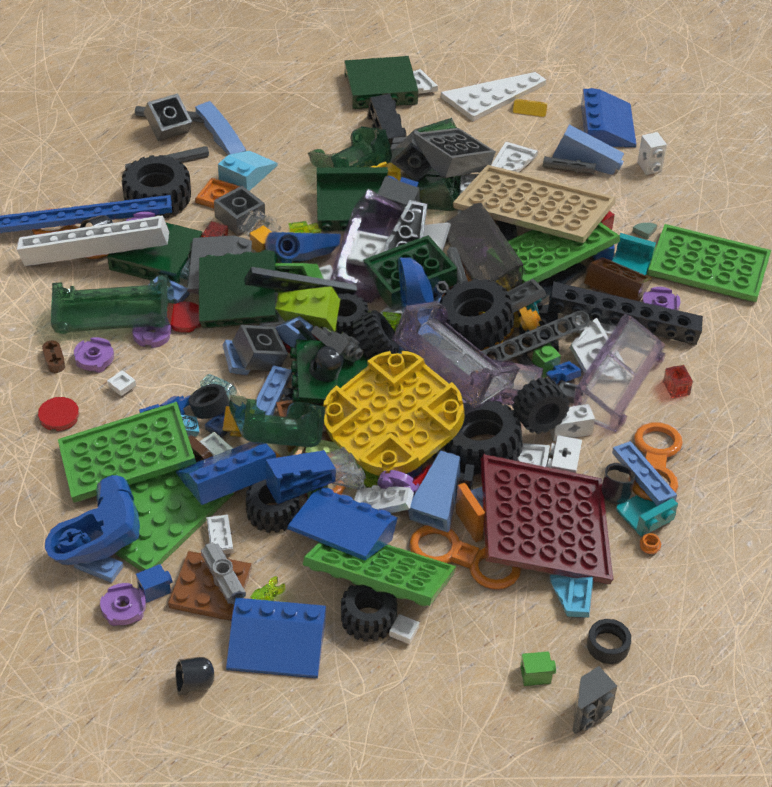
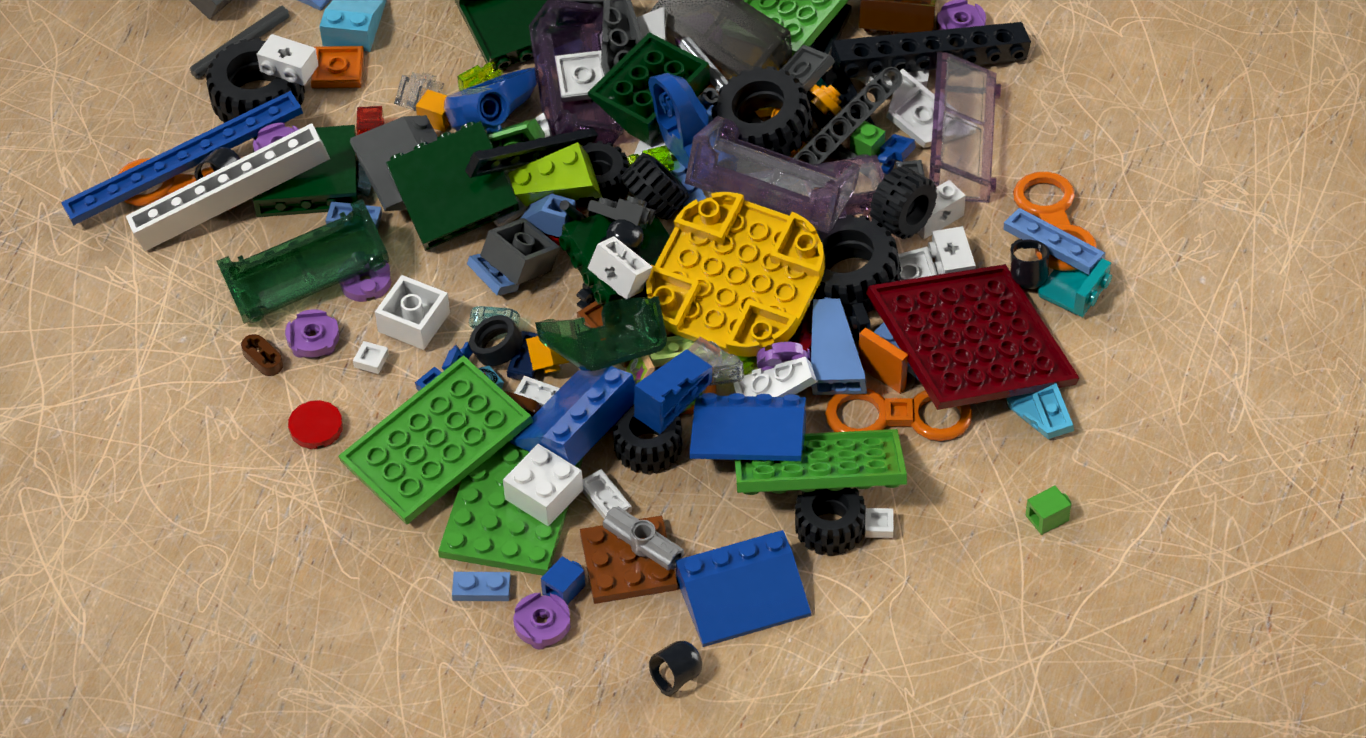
camera: 20 degrees left, 5 degrees up
(98, 531) = (470, 545): blue piece -> none
(165, 362) = (412, 312): none -> white brick
(176, 509) = (543, 484): none -> white brick
(178, 174) = (287, 59): none -> white brick
(185, 317) = (400, 242): red tile -> none
(234, 206) = (378, 78): dark grey brick -> none
(269, 591) = (703, 539): clear neon green plate -> none
(272, 389) = (561, 292): medium blue plate -> none
(312, 379) = (620, 267): none -> white brick
(593, 699) = (1129, 519): dark grey slope -> none
(609, 655) = (1112, 432): black tyre -> none
(650, 543) = (1097, 315): orange plate -> none
(677, 381) = (1031, 114): clear red brick -> none

